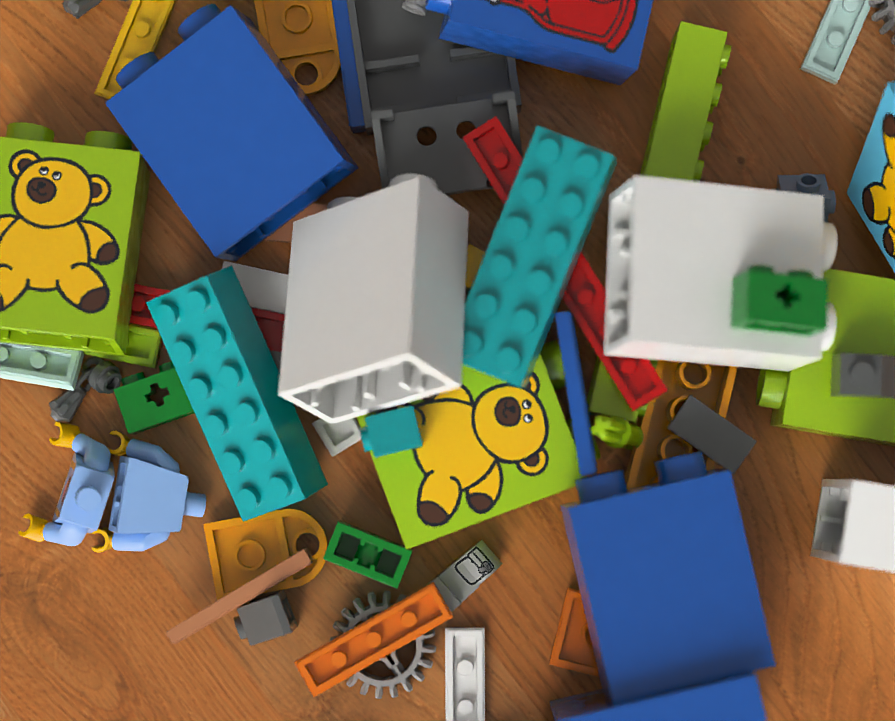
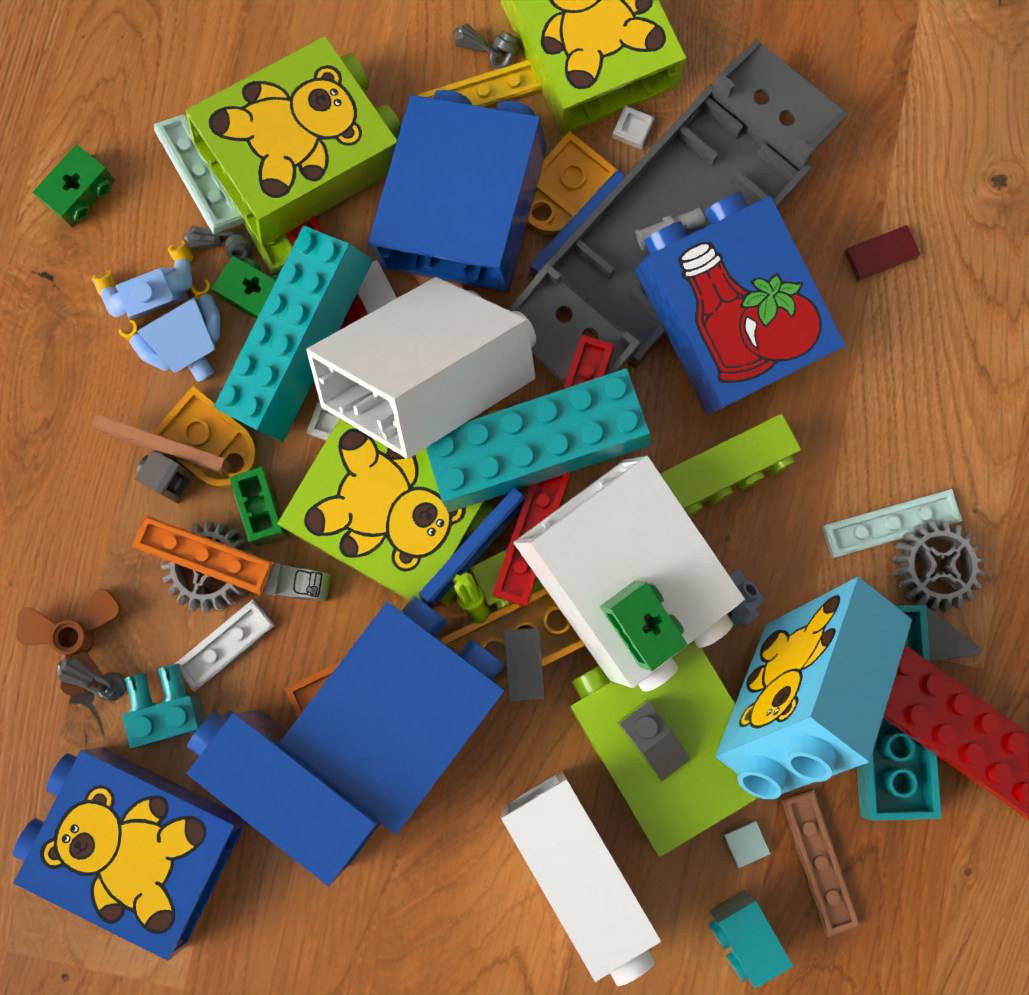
camera: 50 degrees right, 5 degrees down
(391, 432) = (345, 447): teal brick -> none

